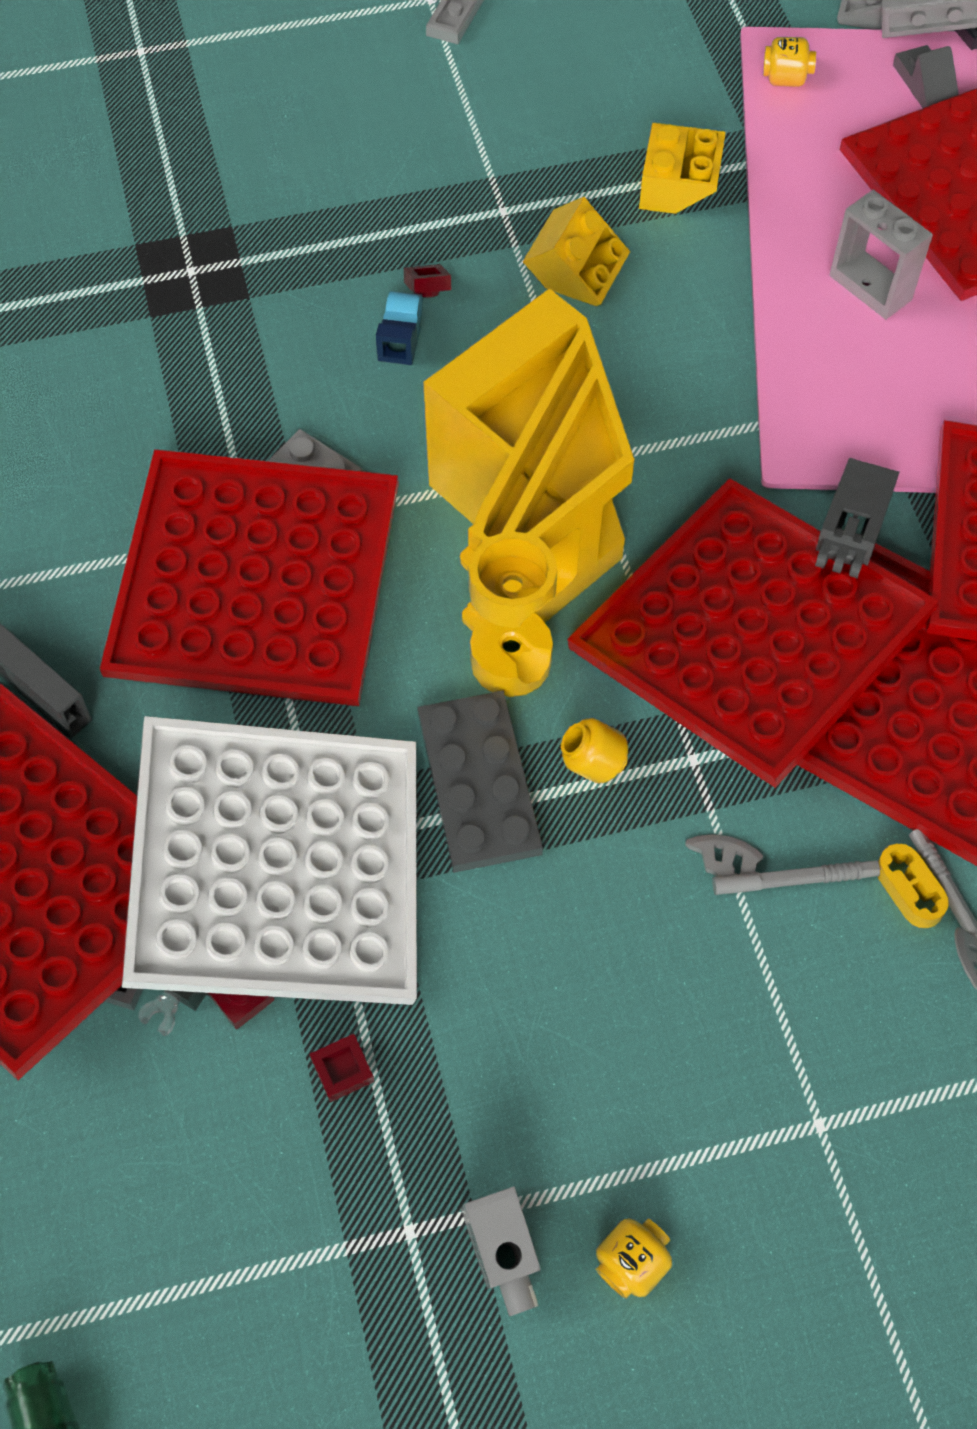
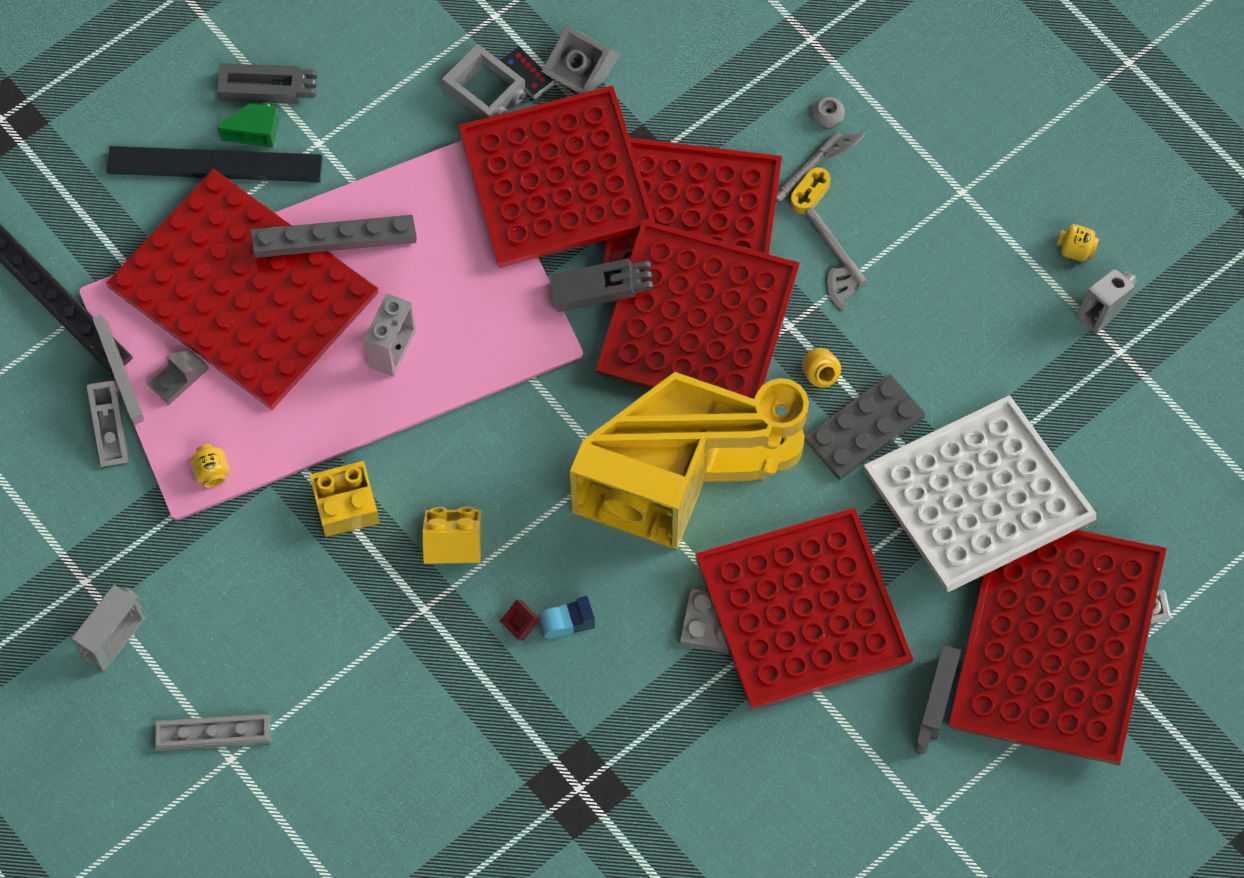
camera: 115 degrees left, 5 degrees up
(342, 1067) = (1063, 415): dark red plate -> none

